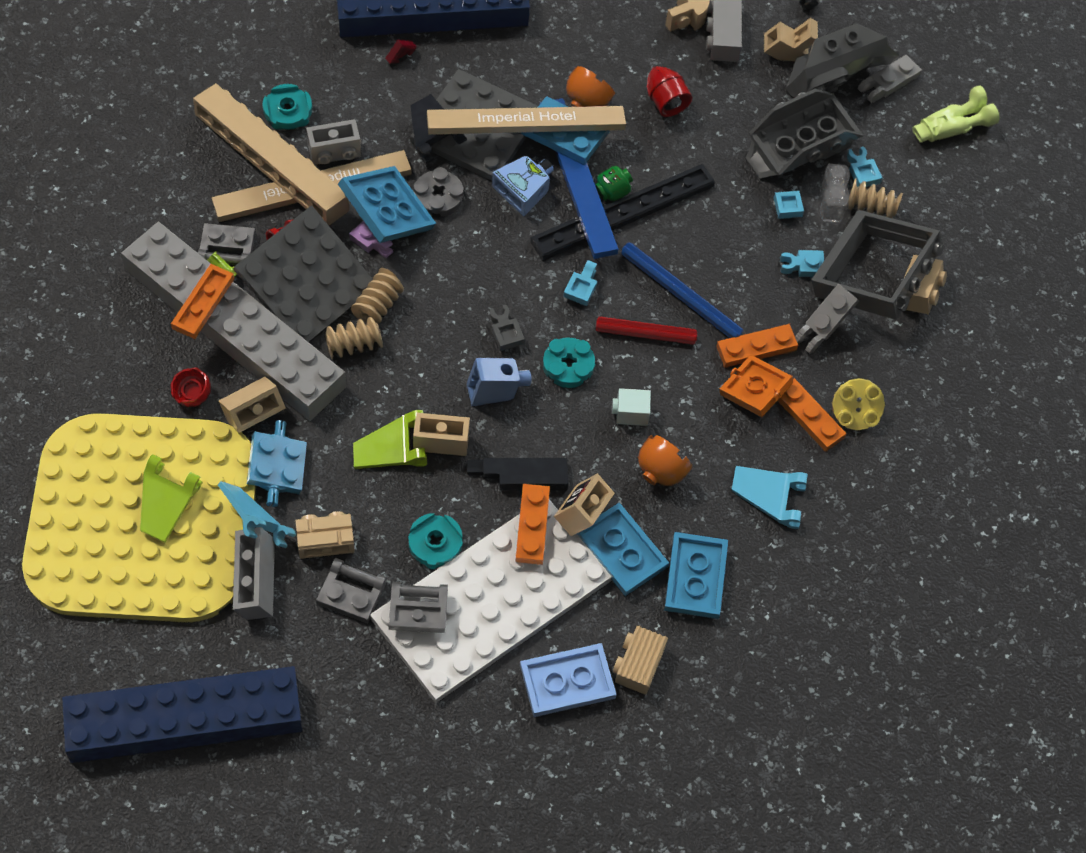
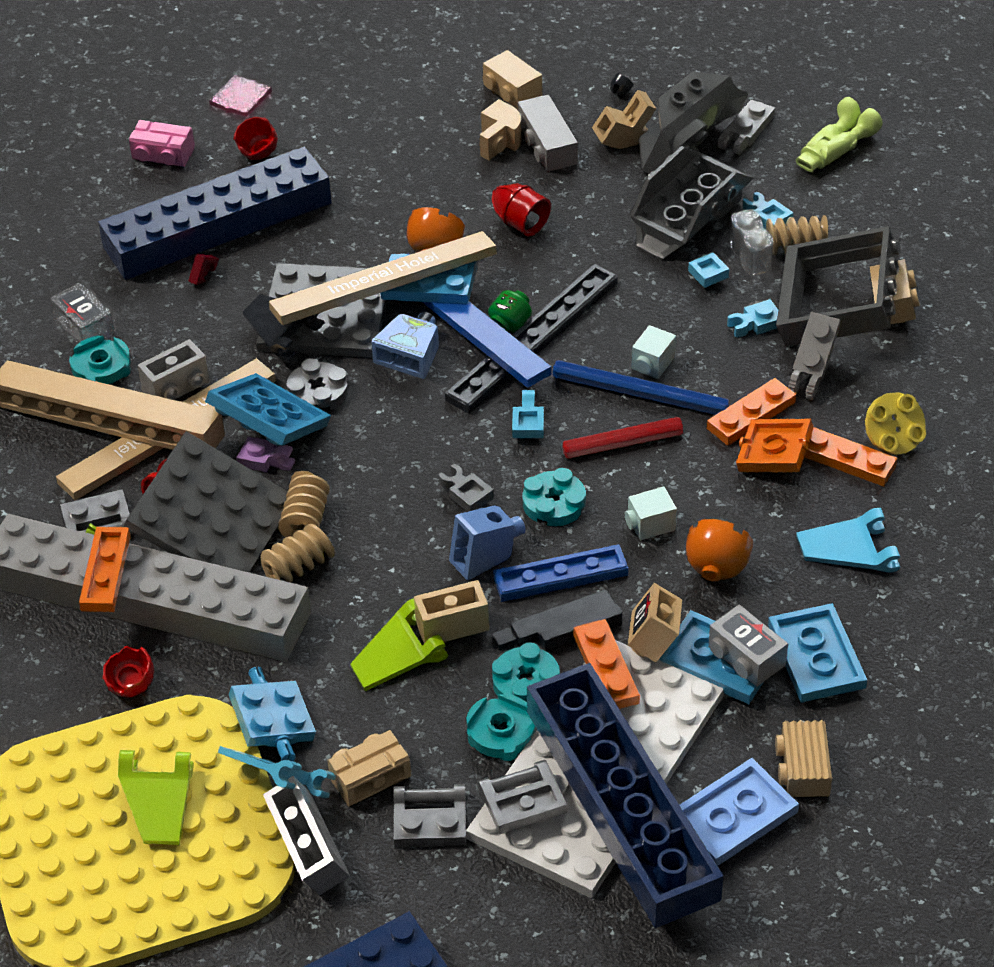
camera: 15 degrees left, 15 degrees down
(252, 404) = (212, 661): tan brick -> none
(291, 60) = (82, 313): none -> clear brick
(479, 492) = (518, 661): none -> teal plate
(487, 638) = (624, 795): none -> dark blue brick
(542, 428) = (560, 572): none -> blue tile
(641, 552) = (747, 645): none -> light grey brick
(706, 264) = (653, 352): none -> light aqua brick

